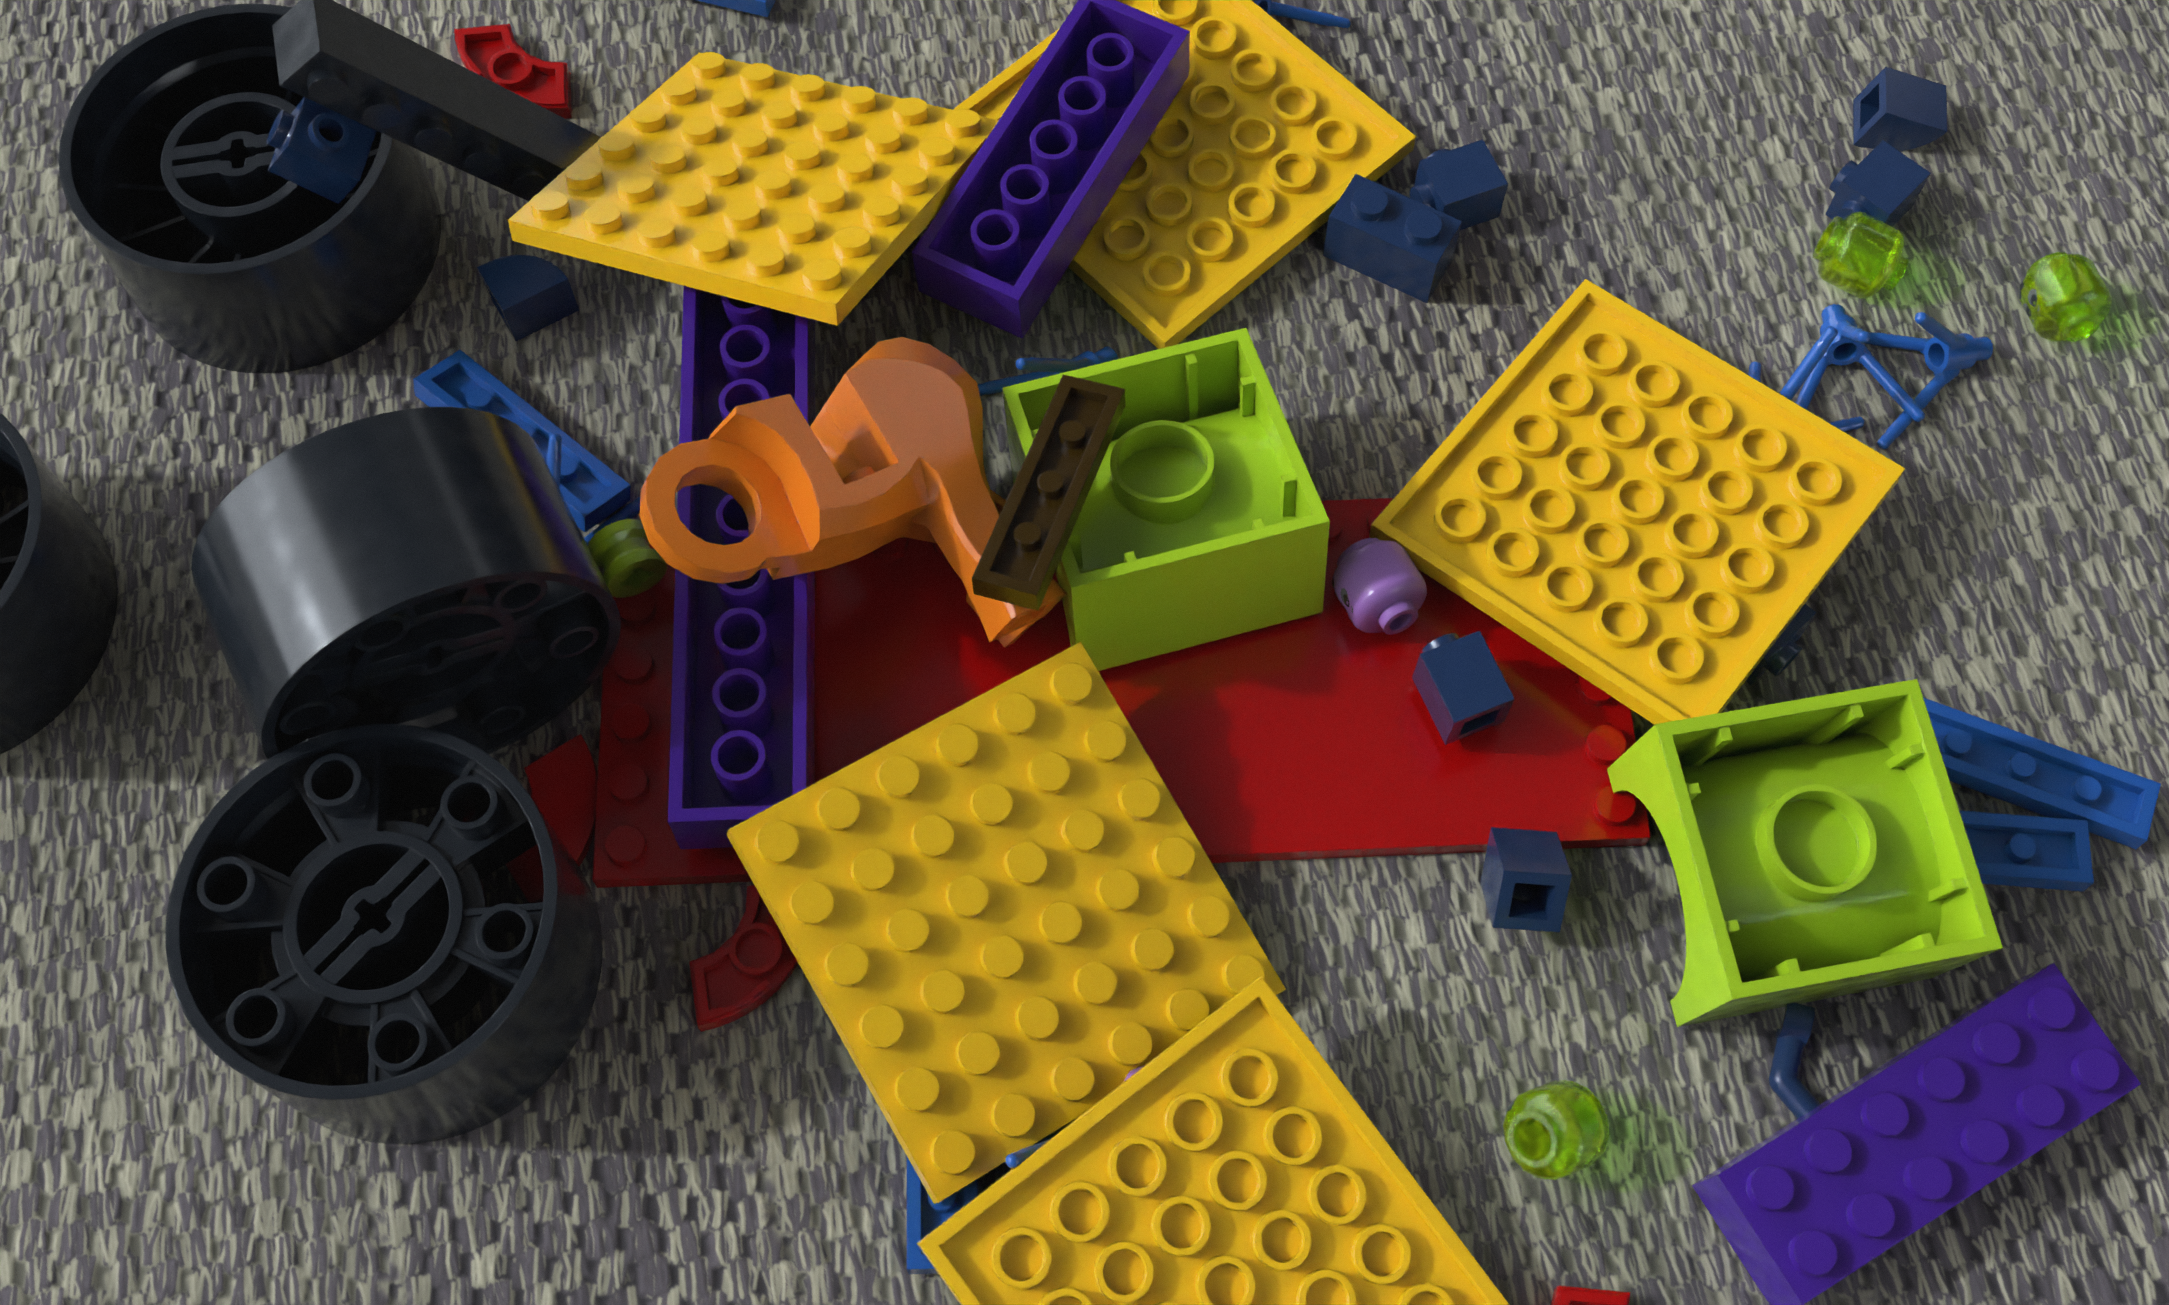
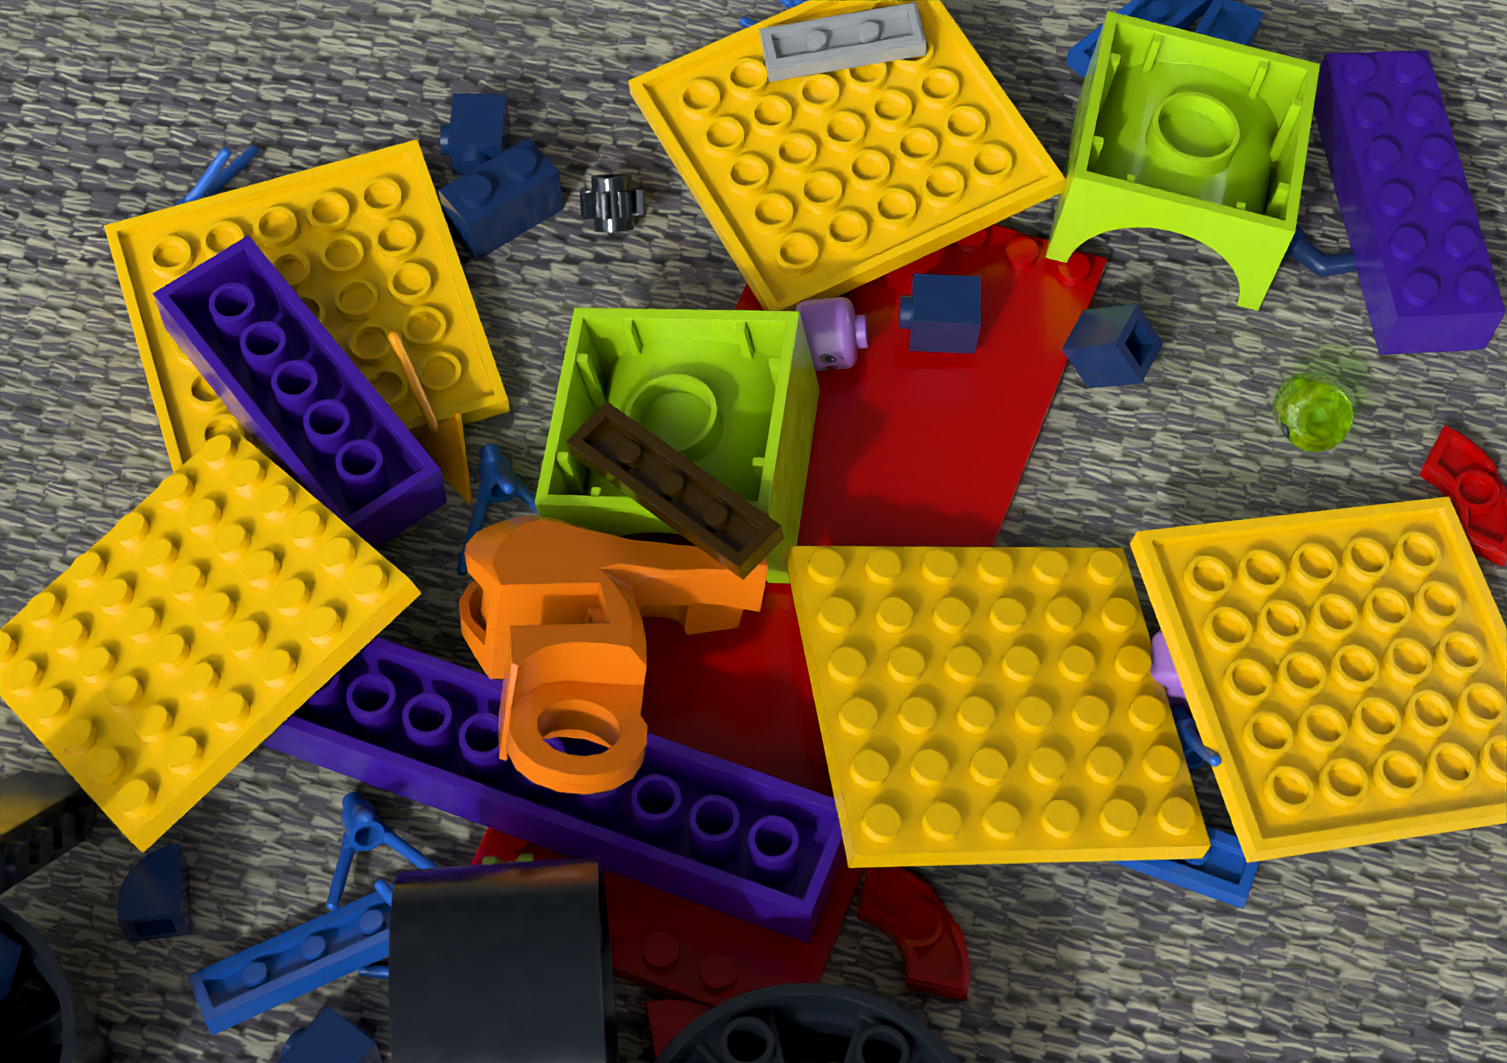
camera: 65 degrees left, 5 degrees down
(655, 423) = (363, 833): none -> blue plant
(1099, 301) = (445, 441): none -> light orange piece
(1443, 335) = (612, 202): none -> black gear
(1747, 449) = (842, 41): none -> light grey tile

